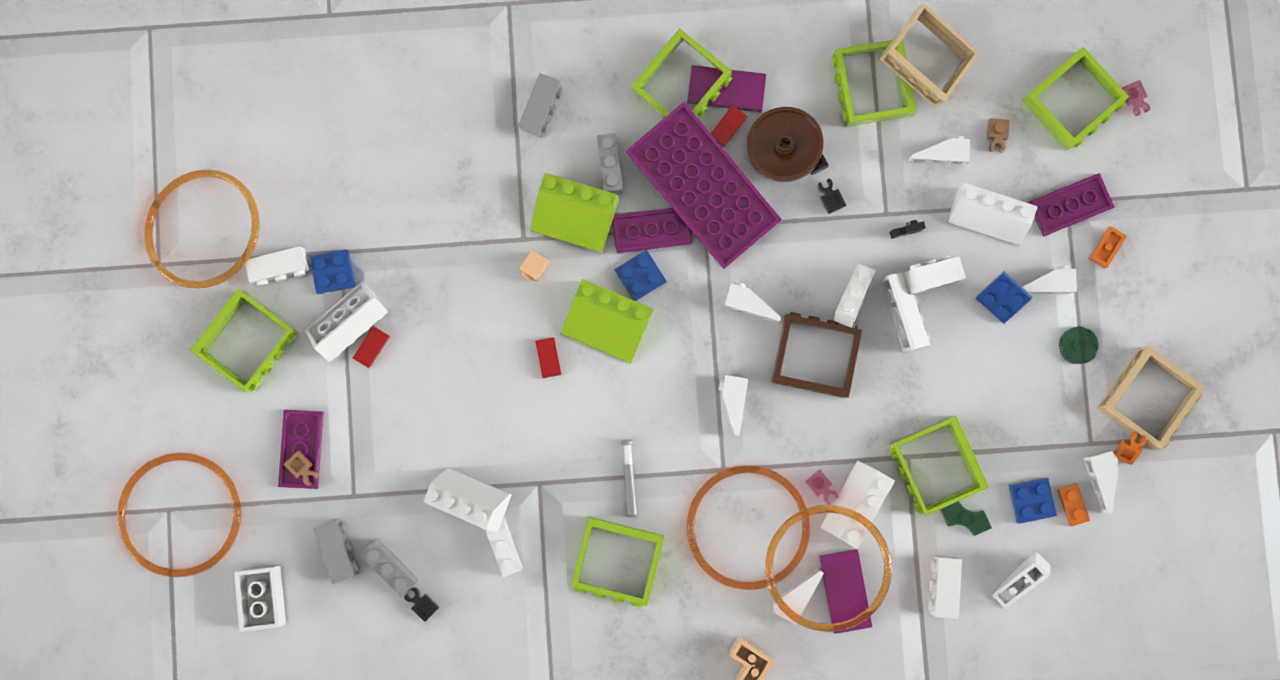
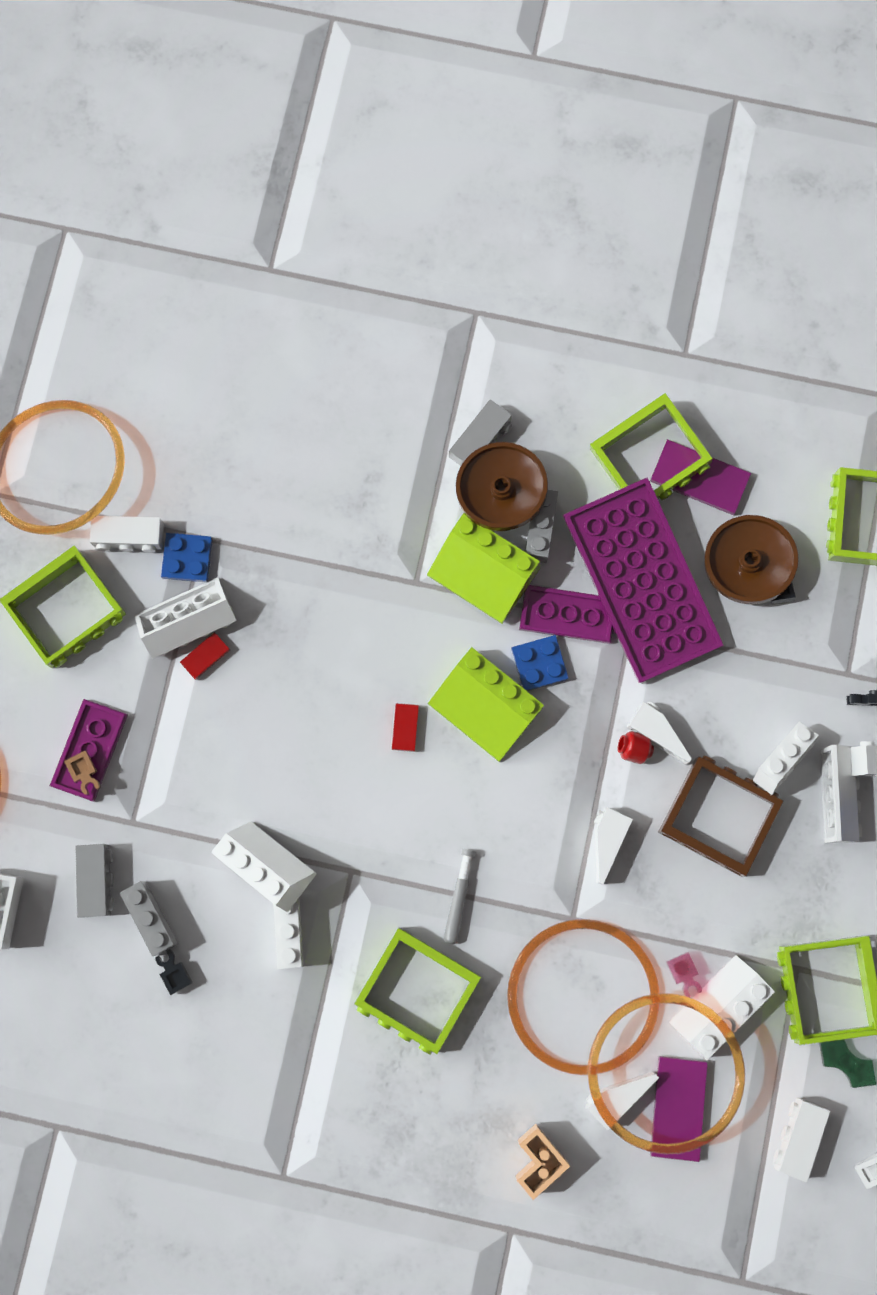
camera: 20 degrees right, 5 degrees down
(533, 266) = (419, 617): light nougat brick -> none
(569, 142) = (501, 486): none -> reddish brown dish
(728, 125) = (691, 519): red tile -> none
(734, 321) = (635, 747): none -> red head
(831, 199) = (788, 639): black plate -> none

